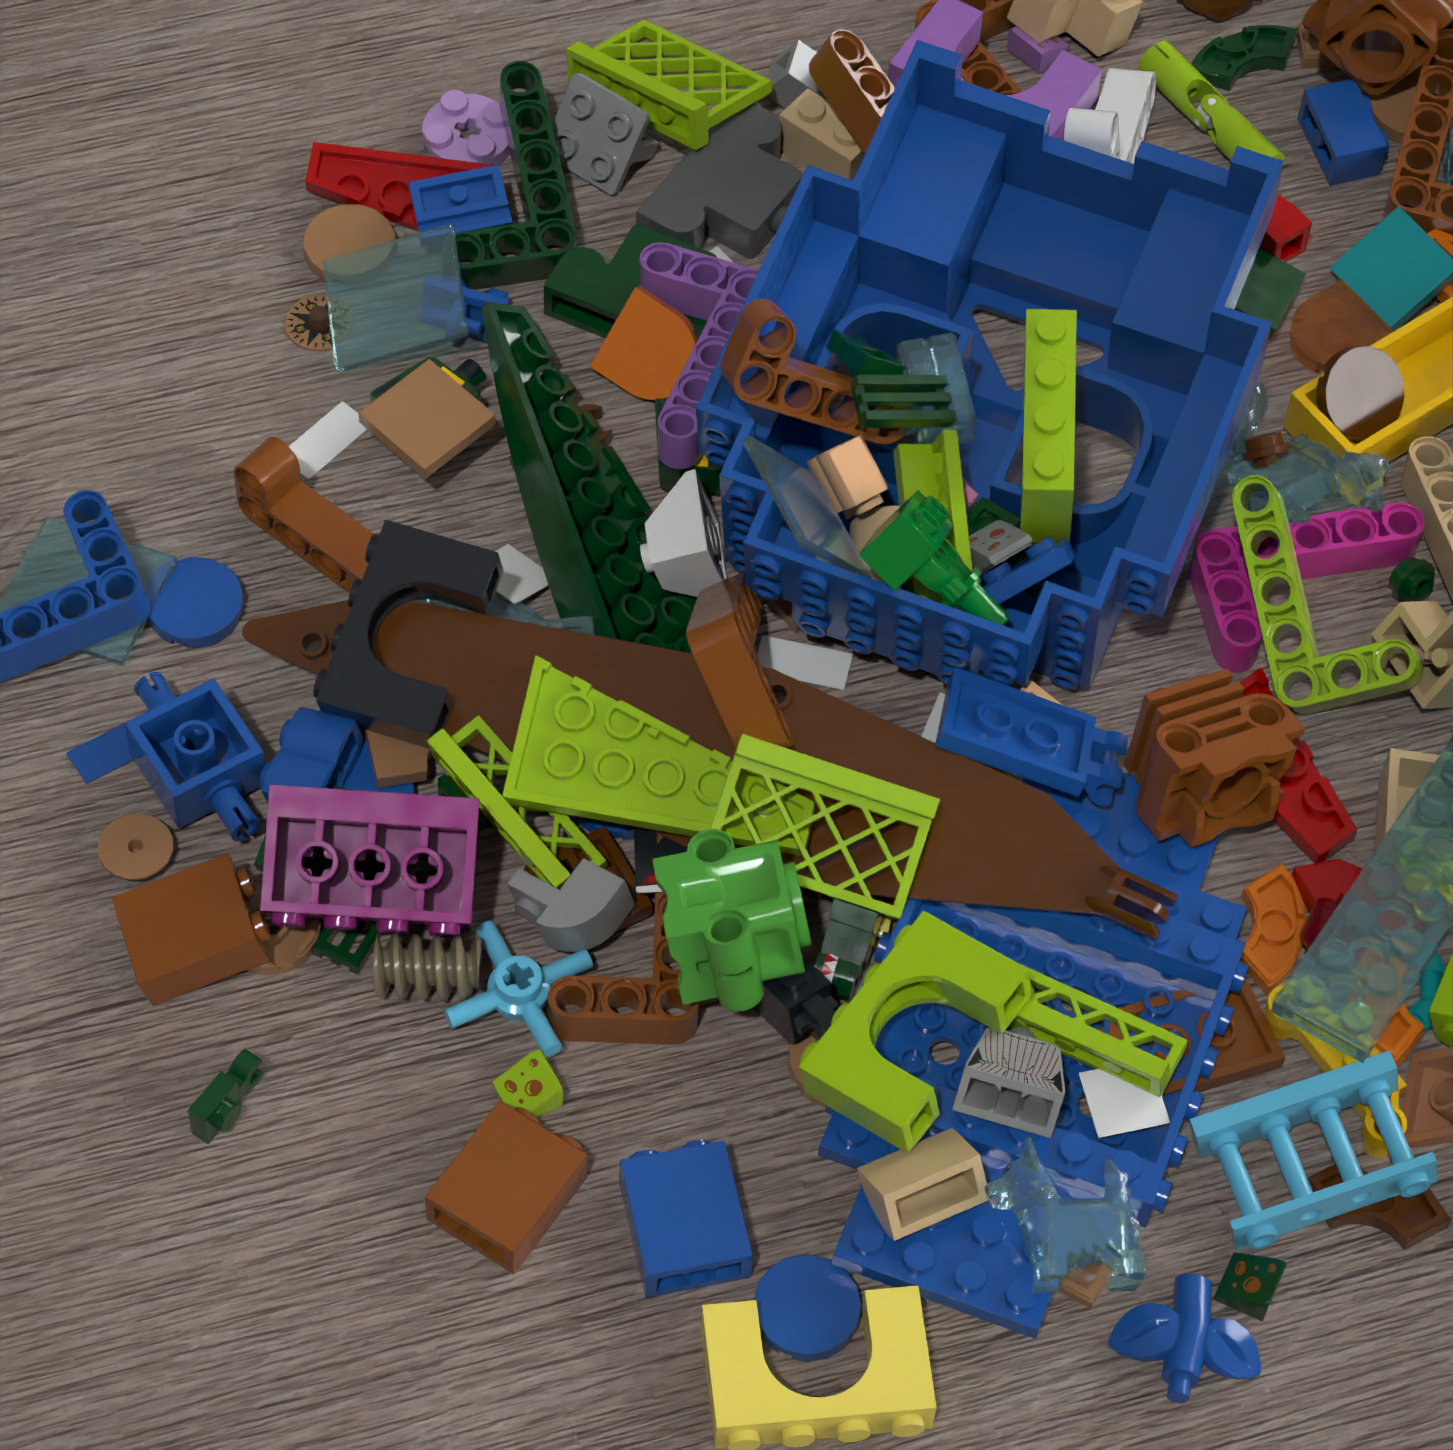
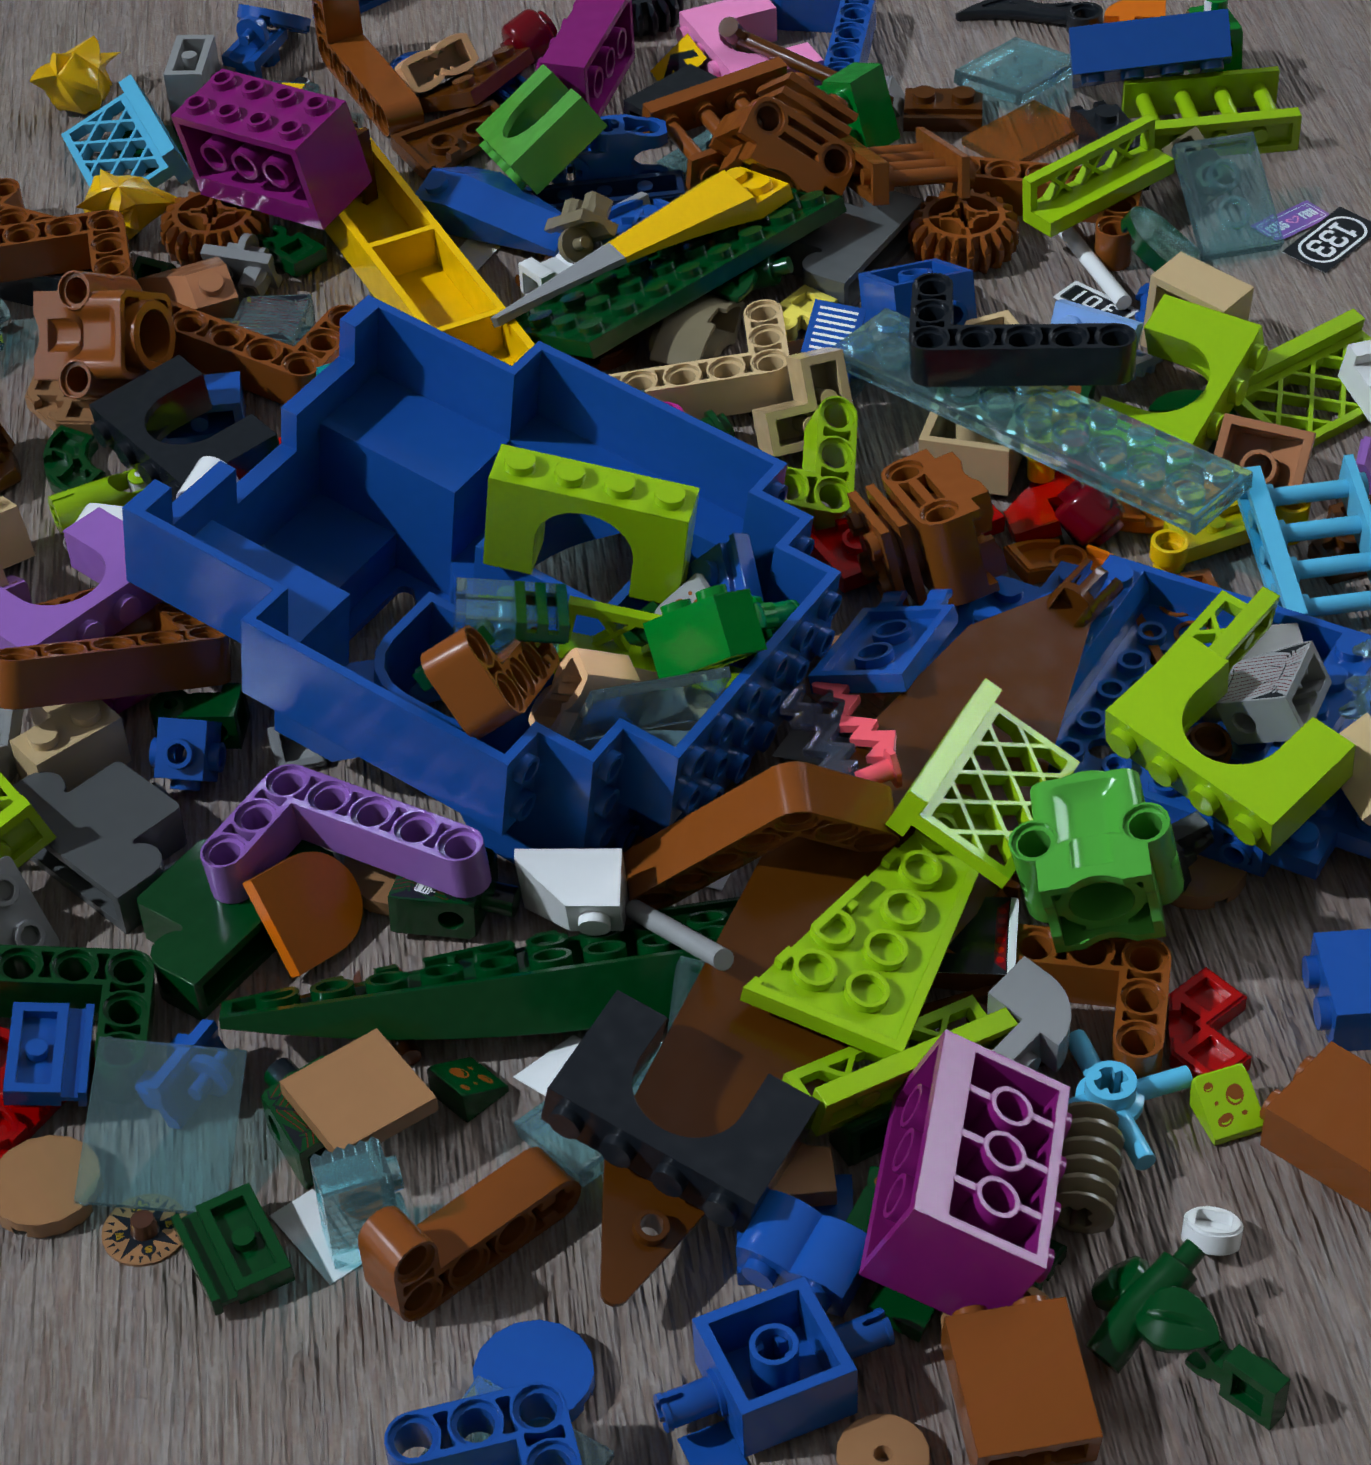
camera: 75 degrees left, 15 degrees down
(267, 1018) = (1152, 1307): none -> dark green plant
(293, 377) = (233, 1248): none -> dark green plate
(323, 440) = (351, 1189): none -> clear light blue brick
(382, 1077) = (1213, 1230): none -> white tile
(484, 507) = (465, 1086): none -> dark green slope
(624, 615) = (679, 935): none -> light grey bar
(646, 1064) = (1195, 1016): none -> red tile
(886, 691) = (829, 726): none -> piece
(960, 1040) = (1211, 741): none -> reddish brown plate
(1256, 74) = (160, 401): none -> black arch

